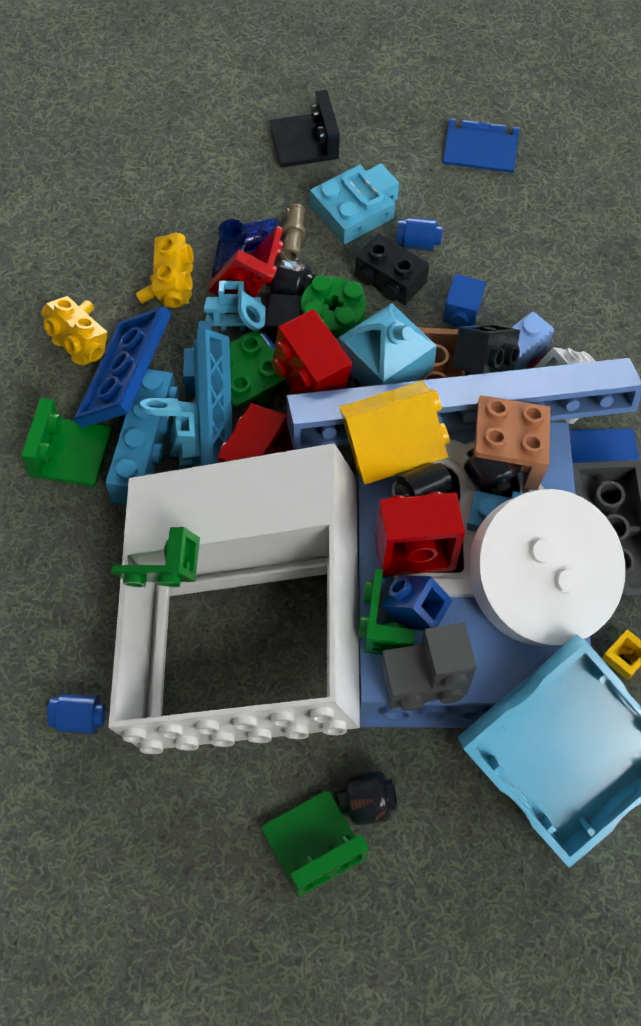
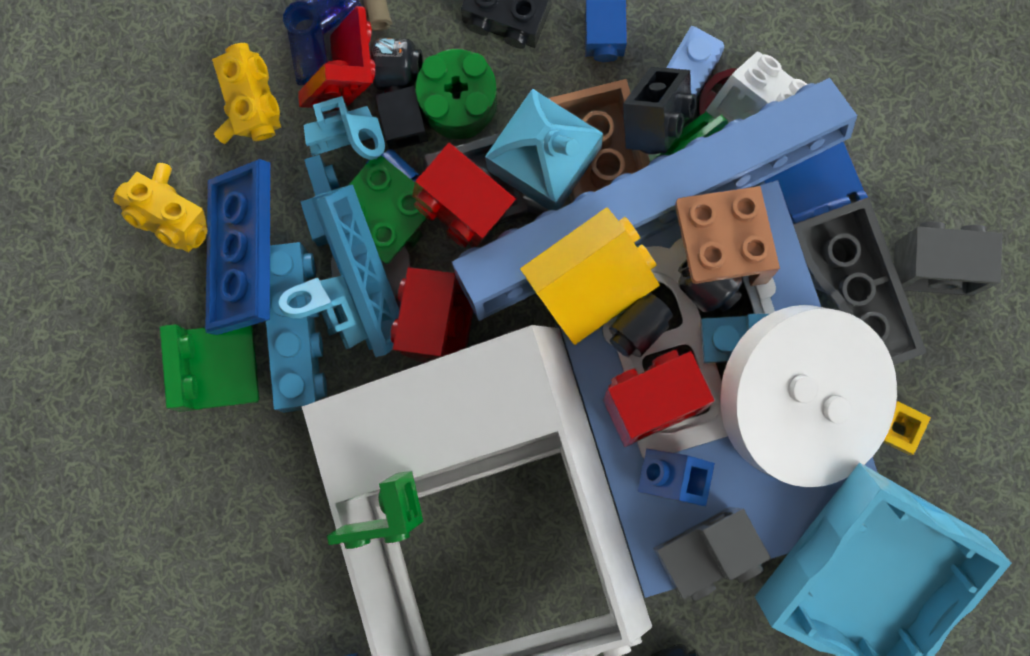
camera: 10 degrees left, 20 degrees up
(381, 636) = (659, 522): green bracket -> none

